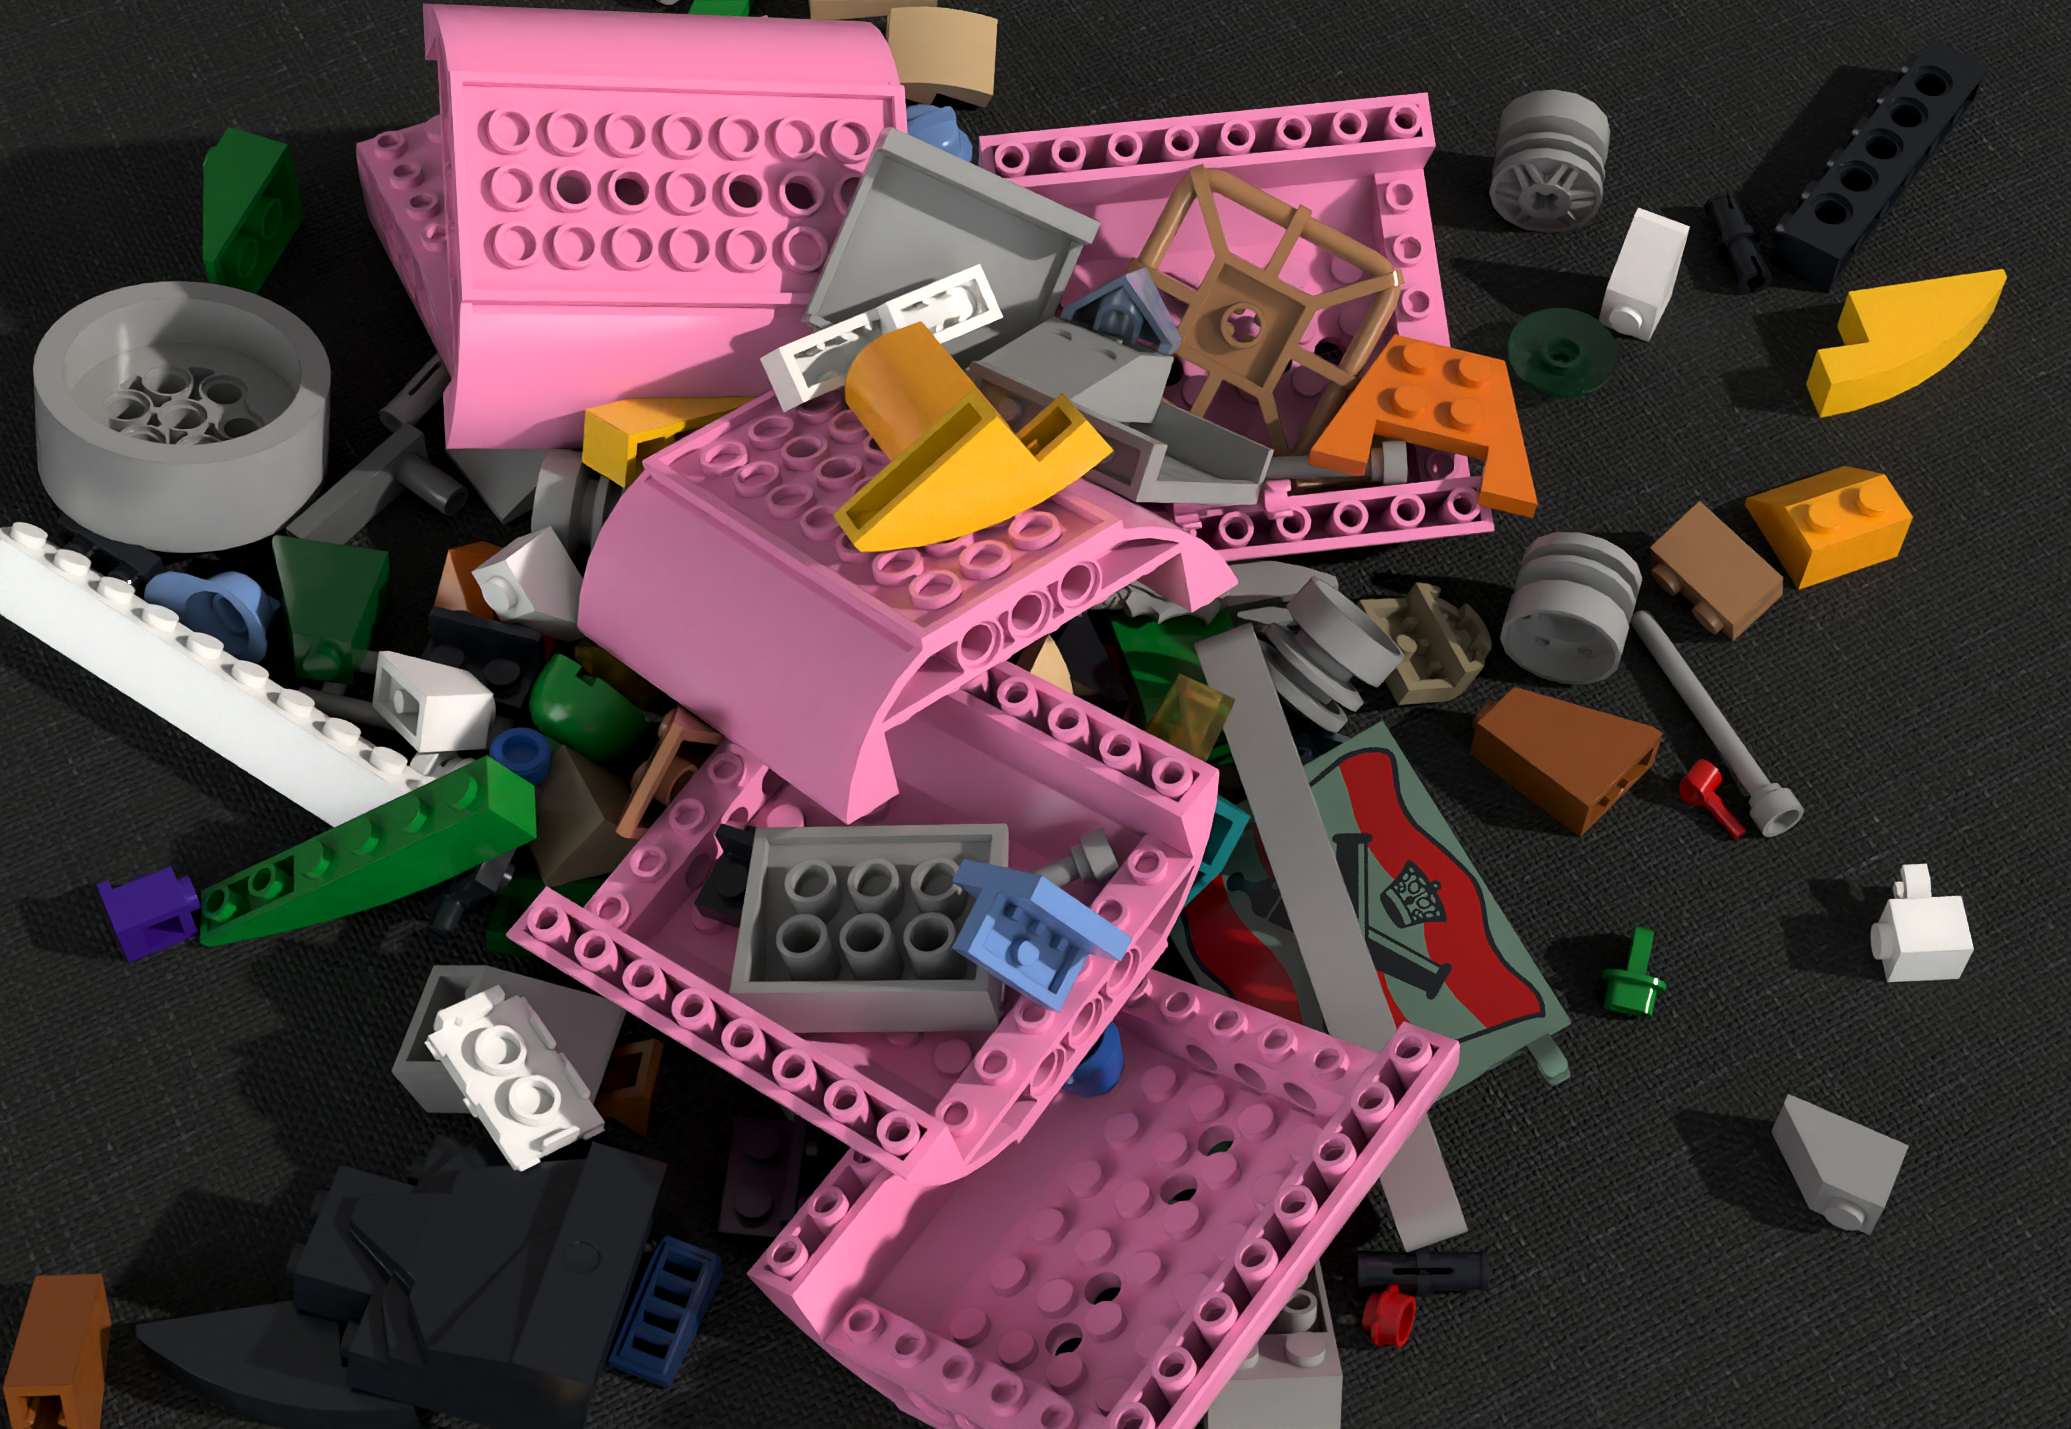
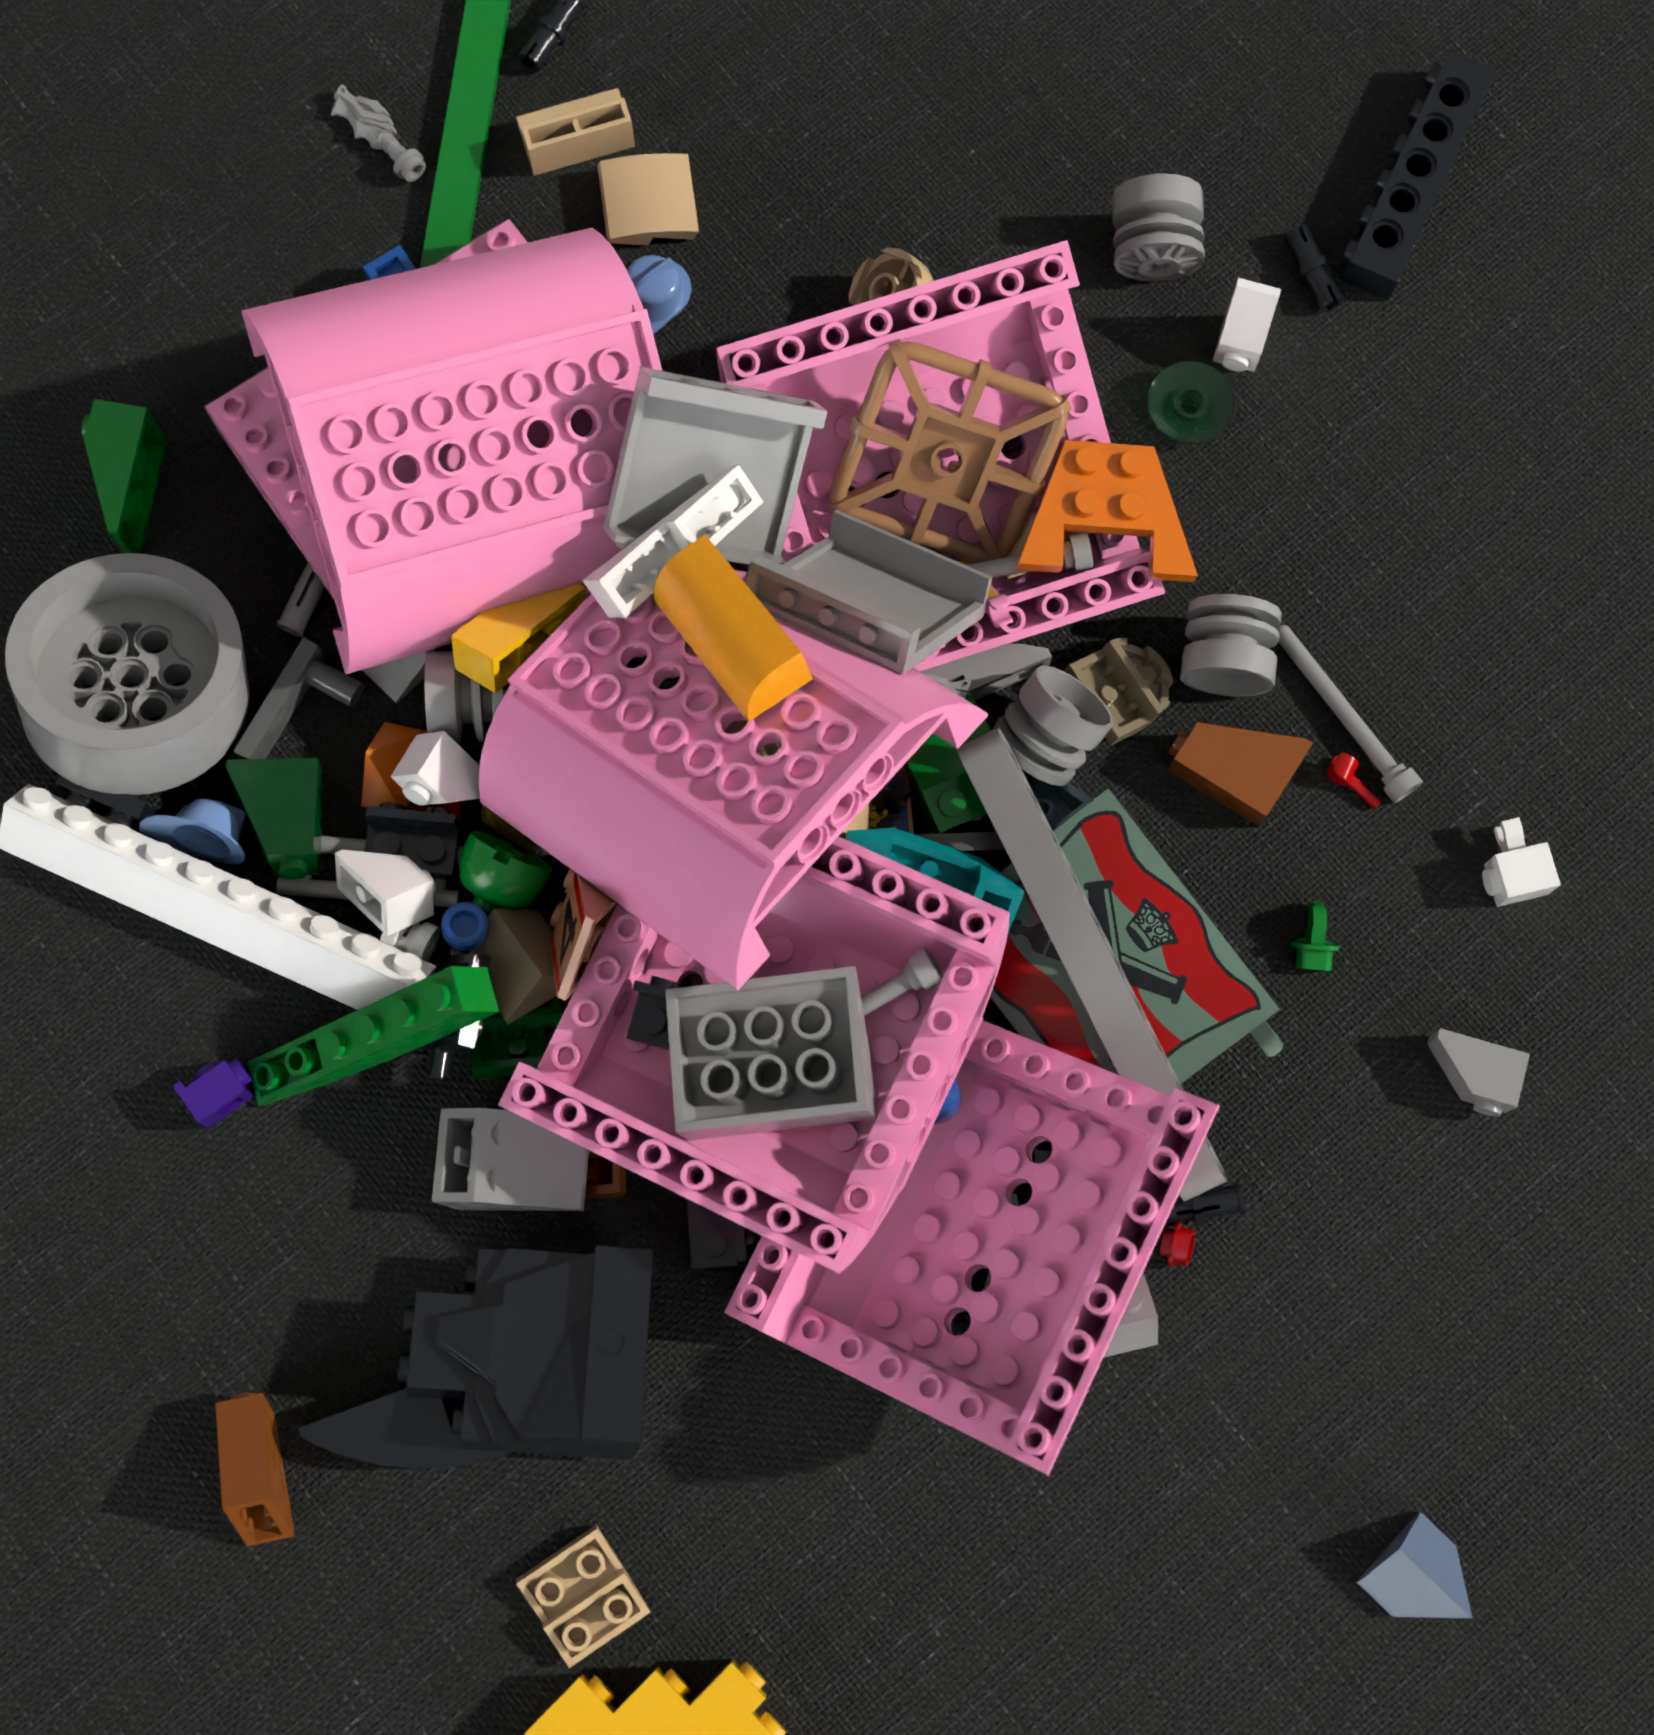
camera: 10 degrees left, 20 degrees up
(513, 1076) = (525, 1201): white piece -> none
(688, 1261) = (679, 1298): dark blue slope -> none
(970, 475) = (780, 700): yellow slope -> none
(1031, 932) = (891, 1065): medium blue bracket -> none
(1089, 368) = (830, 532): light grey slope -> none
(1130, 310) = (857, 467): sand blue slope -> none
(1191, 717) = (965, 829): clear yellow slope -> none
(1714, 572) = (1334, 589): medium nougat brick -> none
(1832, 523) = (1413, 519): light orange slope -> none
(1900, 338) = (1450, 341): yellow slope -> none

